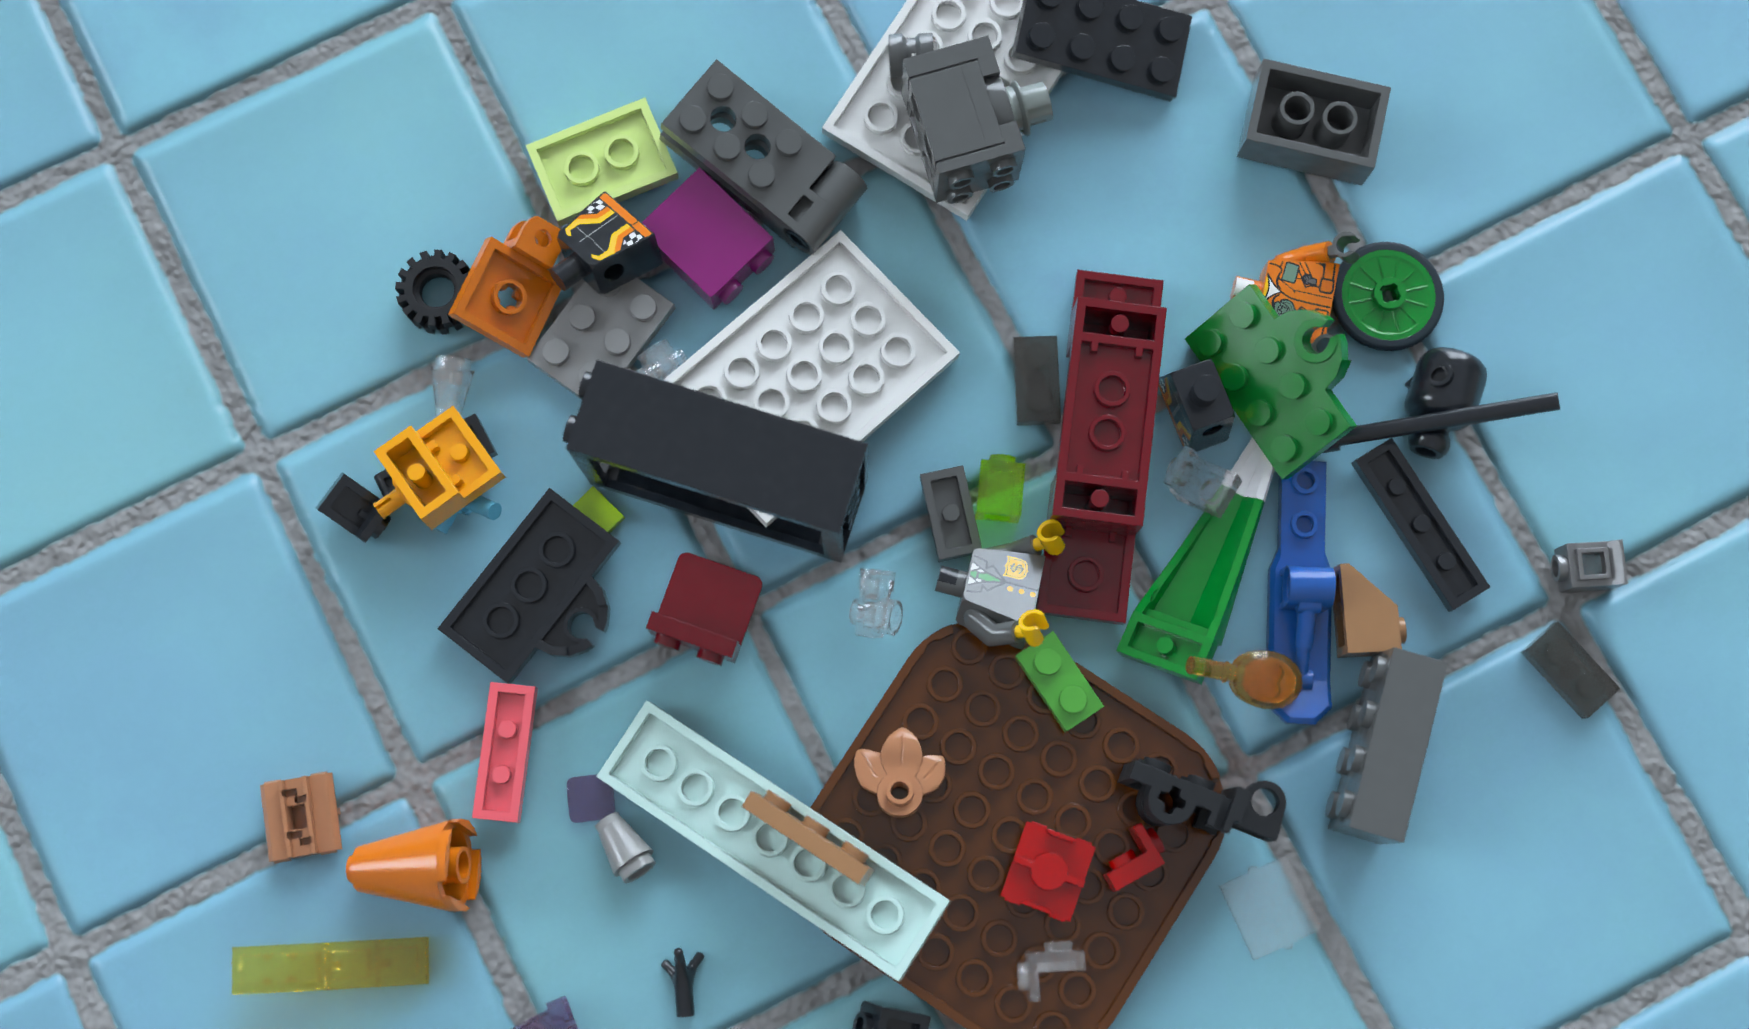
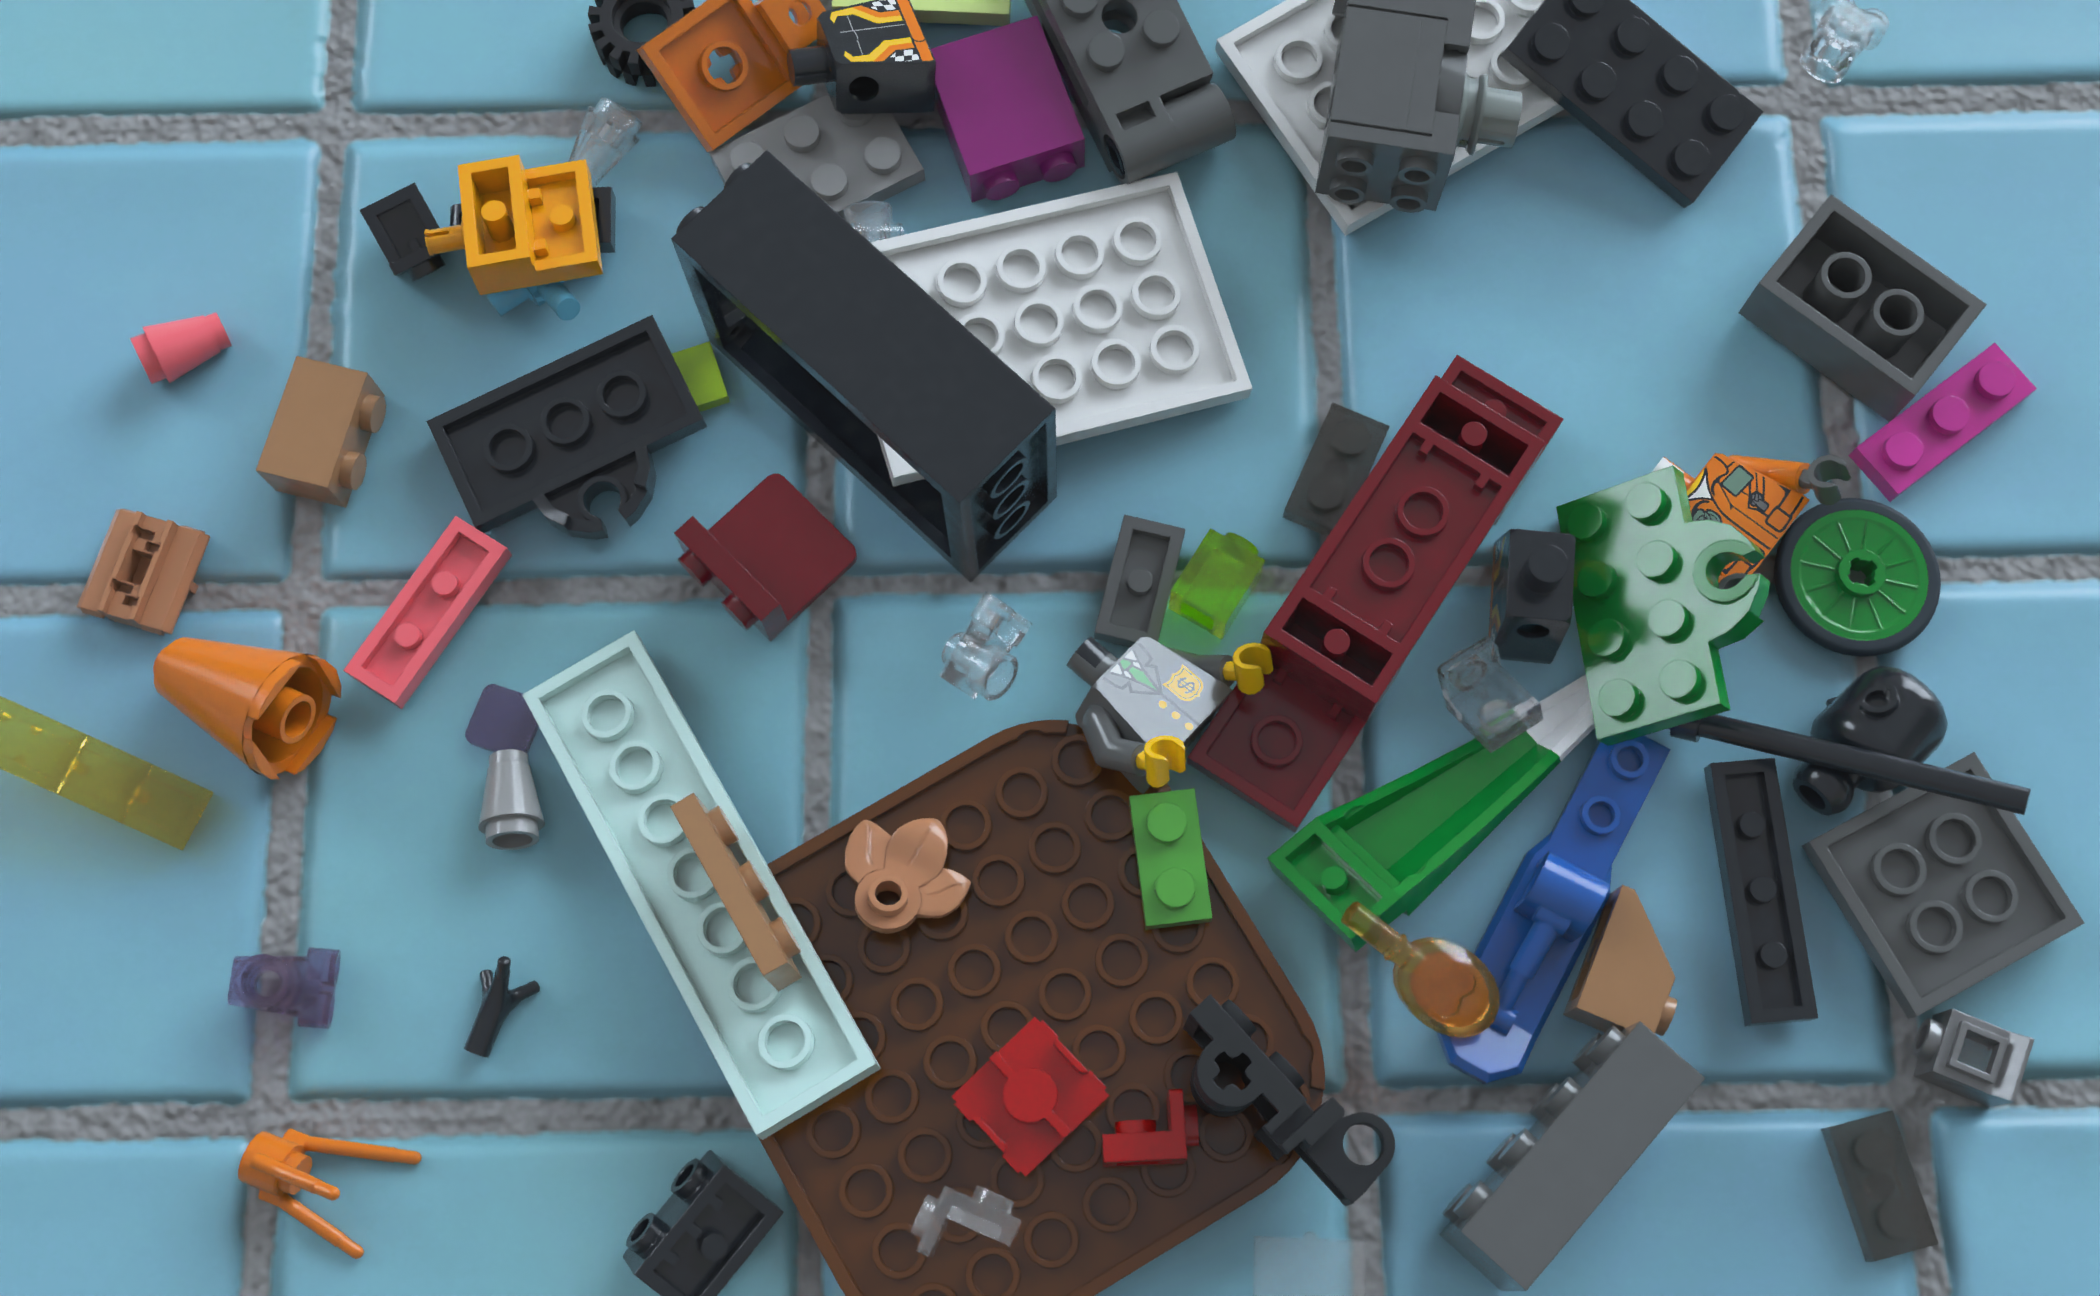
camera: 30 degrees right, 5 degrees down
(241, 657) = (179, 346): none -> coral cone
(371, 668) = (322, 432): none -> medium nougat brick
(1394, 170) = (1942, 422): none -> dark pink plate
(1526, 472) = (1941, 891): none -> dark grey plate

